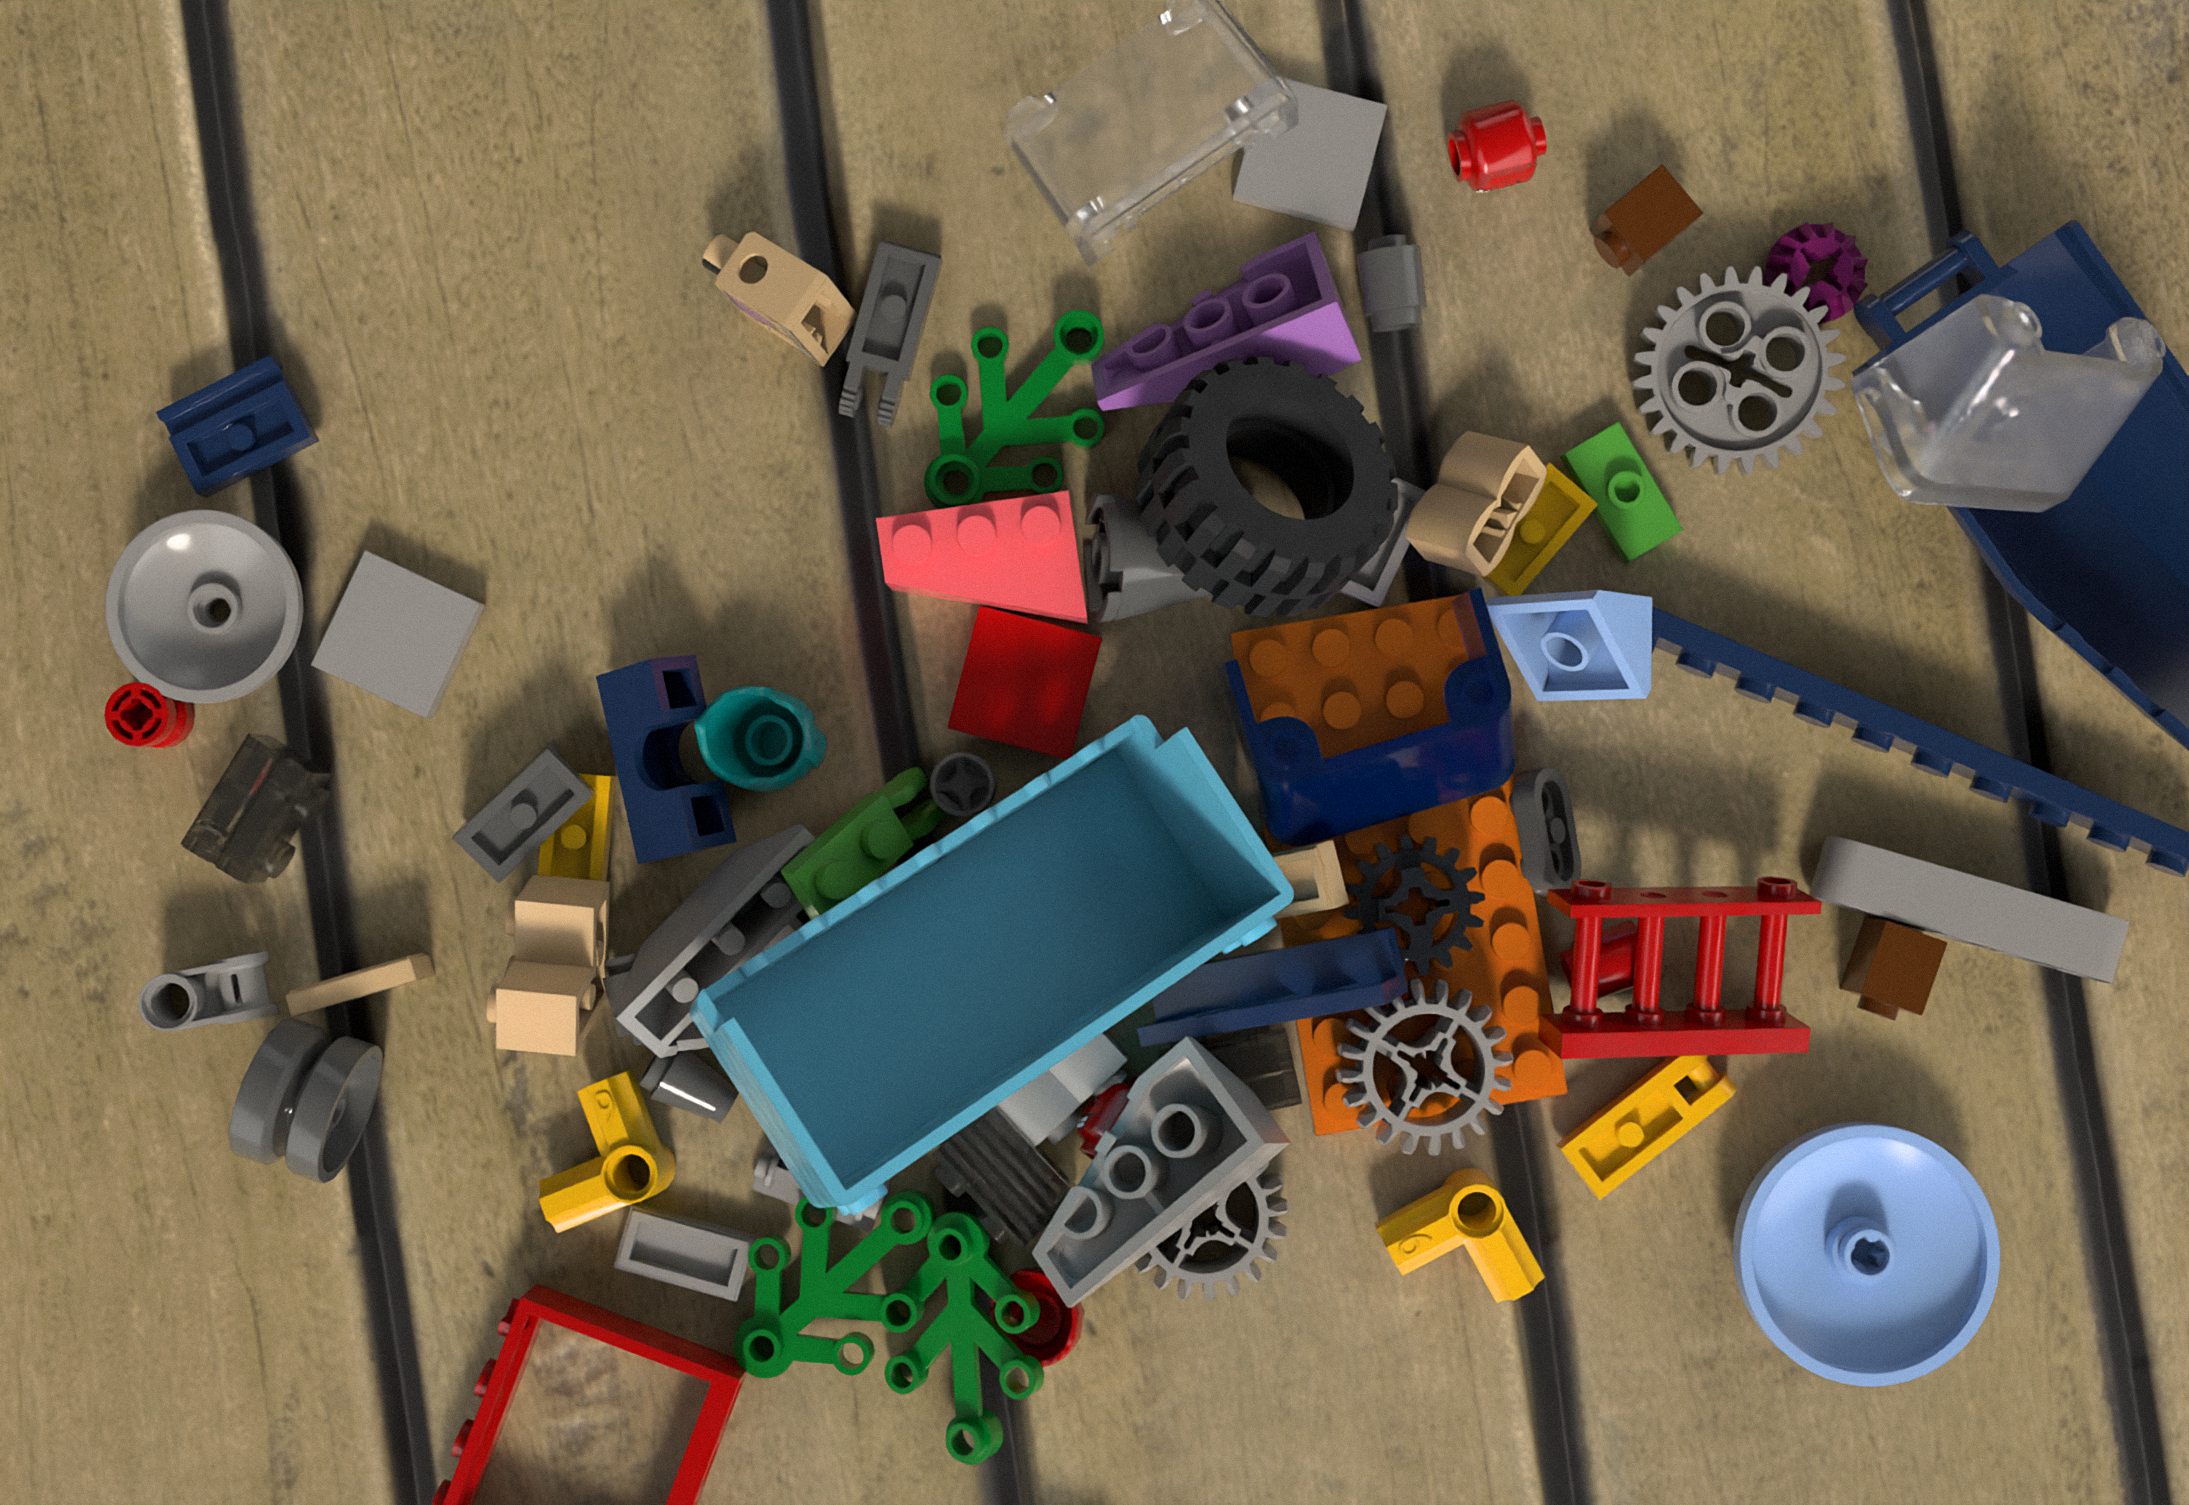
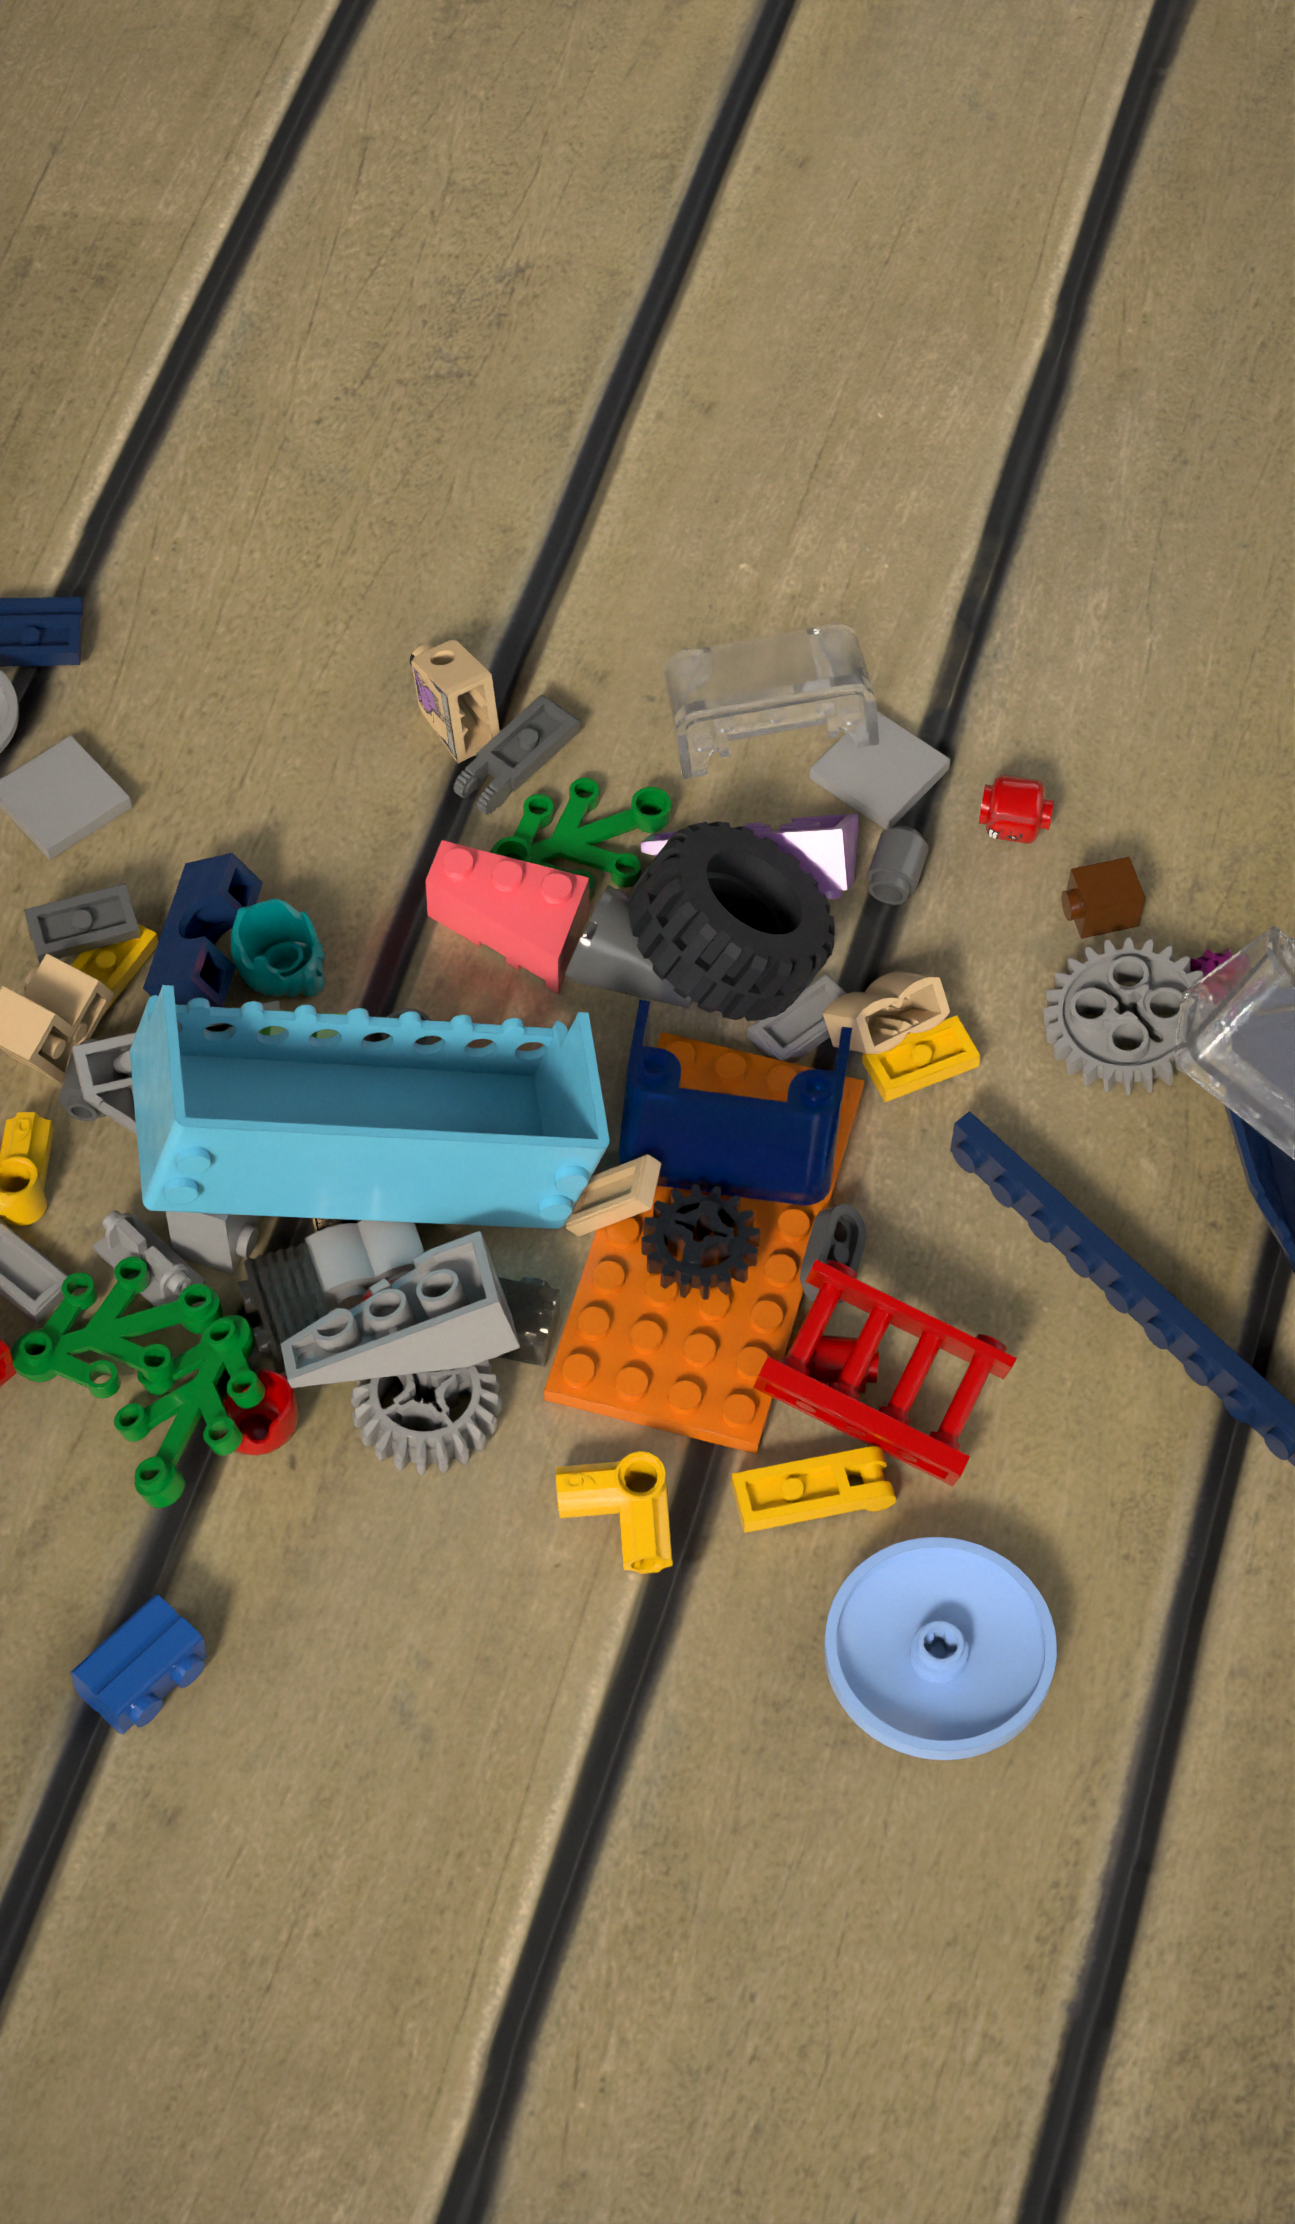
camera: 25 degrees right, 30 degrees down
(689, 1085) = (89, 1152): dark grey cone -> none
(1024, 683) = (490, 991): red tile -> none
(1279, 987) = (580, 1251): dark blue fence -> none
(1409, 1093) = (645, 1381): light grey gear -> none
(1578, 643) = (915, 1116): light blue slope -> none
(1627, 496) = (1005, 1066): bright green plate -> none
(1892, 968) = (1062, 1460): reddish brown brick -> none
(1969, 909) = (1145, 1448): light grey beam -> none

